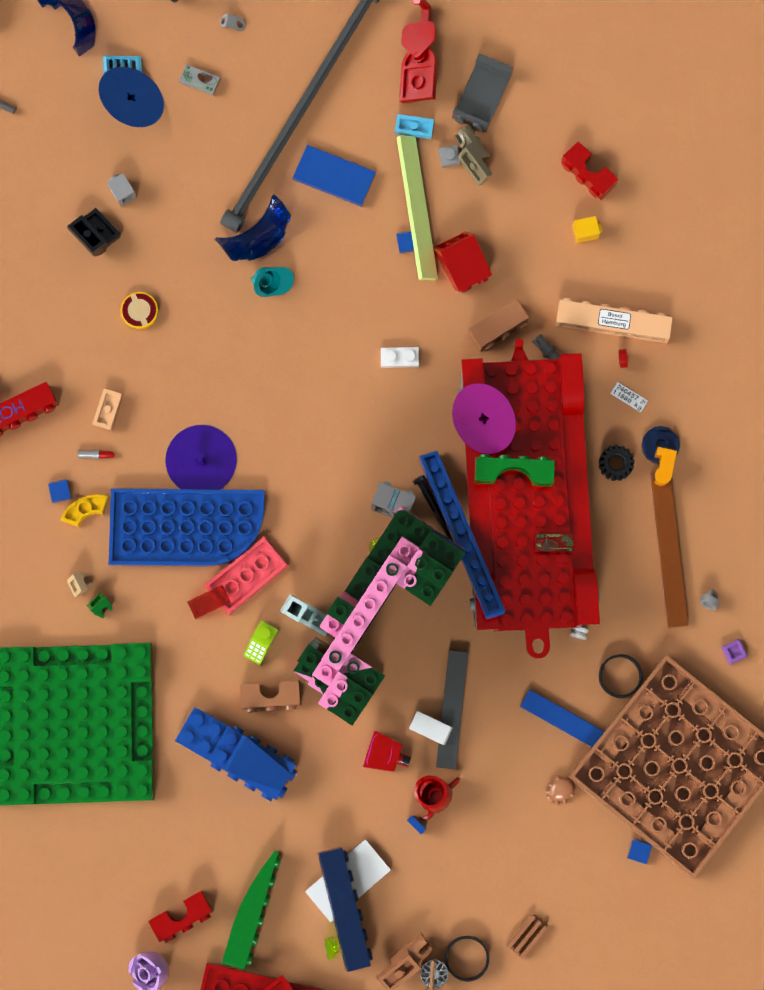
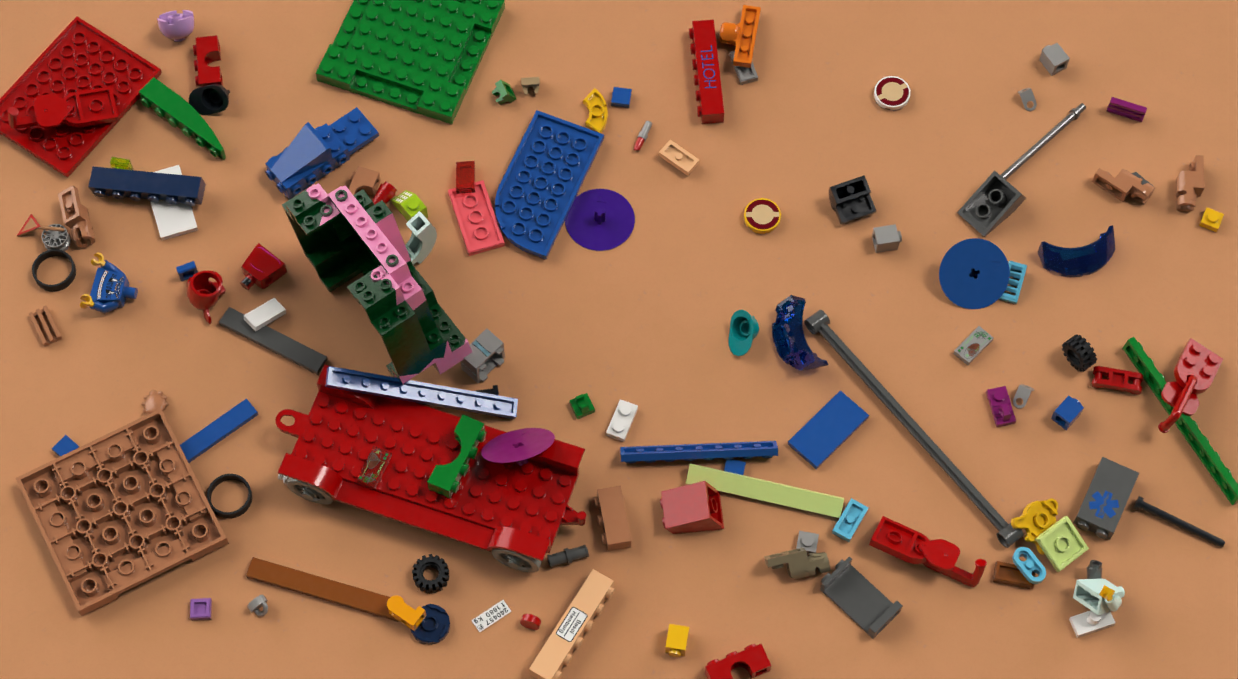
camera: 110 degrees right, 15 degrees down
(47, 108) = (991, 204): none -> dark grey slope
(221, 892) = (209, 99): none -> black piece
(250, 38) = (1001, 406): none -> magenta hinge
(257, 672) = (384, 193): none -> red cone
(400, 398) = (582, 406): none -> green tile
(403, 277) = (699, 451): none -> blue plate
(466, 891) = (109, 288): none -> blue torso

